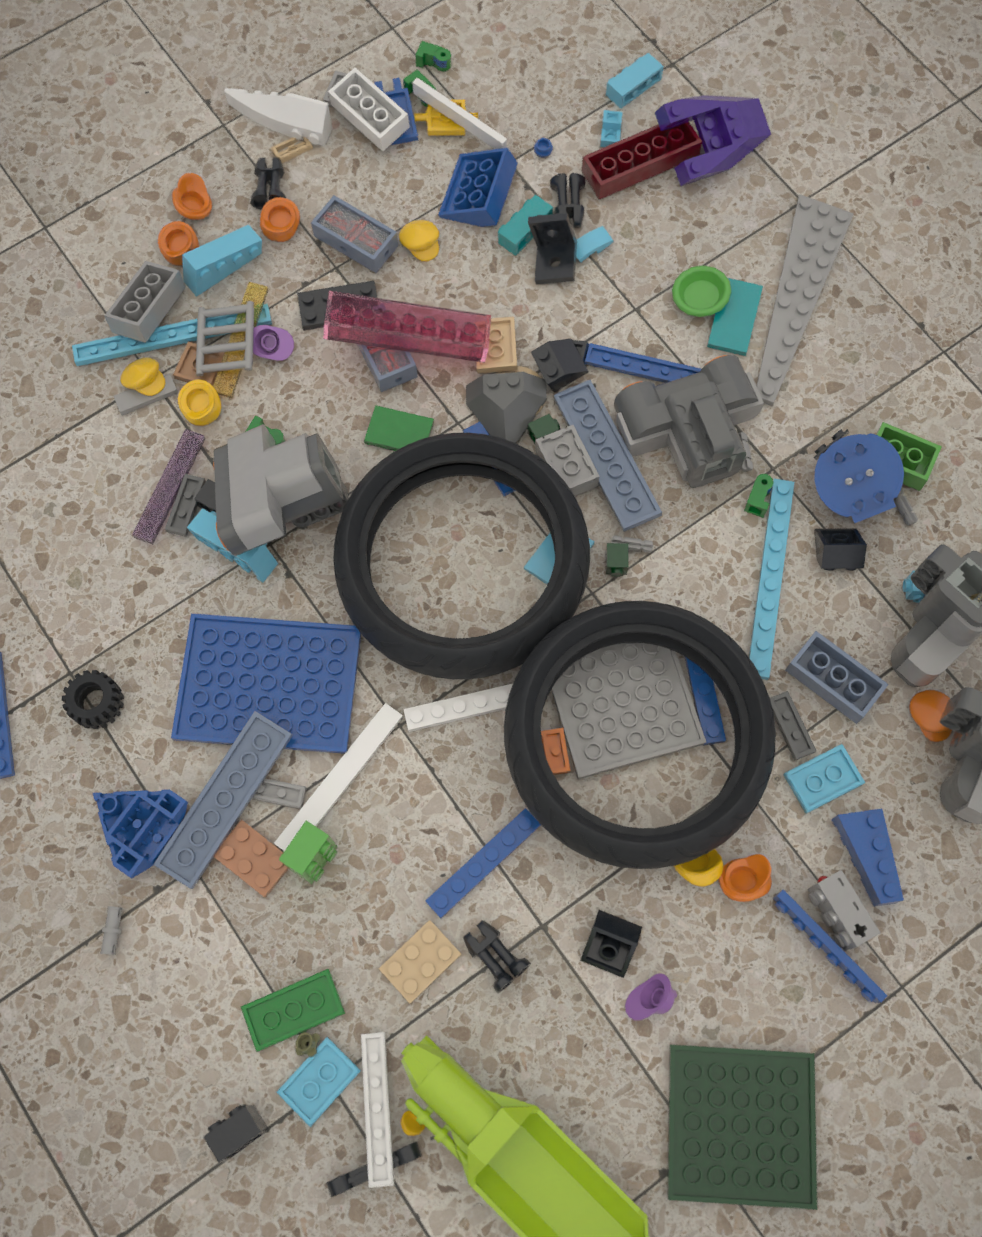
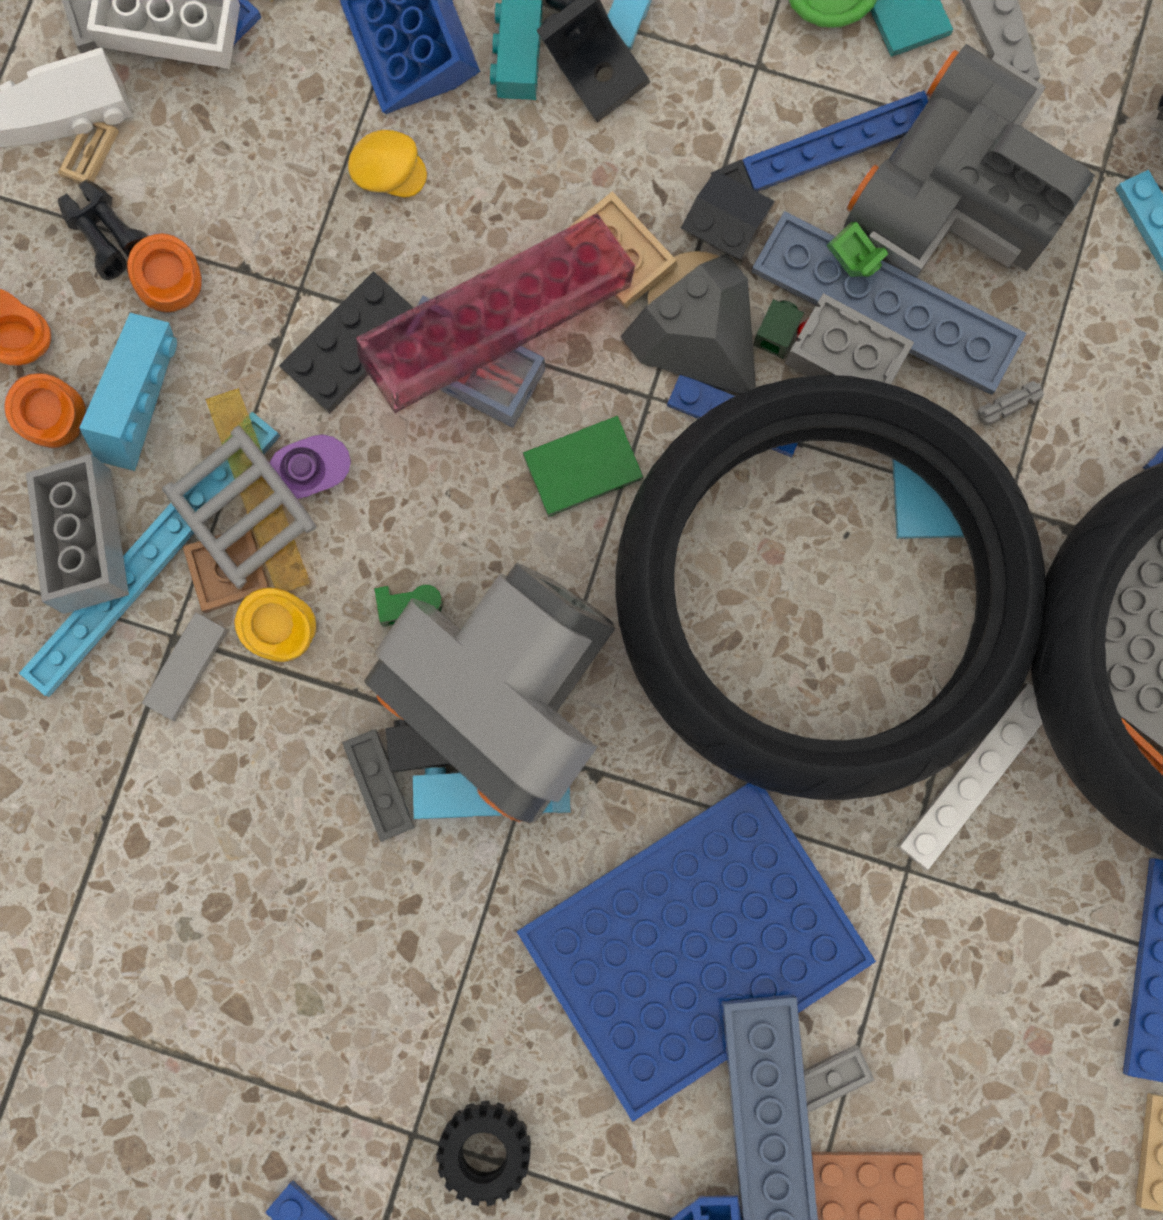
camera: 40 degrees left, 10 degrees up
(143, 376) = (162, 644): yellow piece -> none
(168, 486) = (332, 775): clear purple plate -> none
(309, 852) = (955, 1141): bright green brick -> none
(343, 773) = (891, 1005): white tile -> none
(355, 234) = (293, 221): brick -> none
(606, 417) = (856, 251): none -> bright green bracket
(617, 559) = (1012, 439): dark green brick -> none
(761, 488) = (1119, 220): green leg -> none

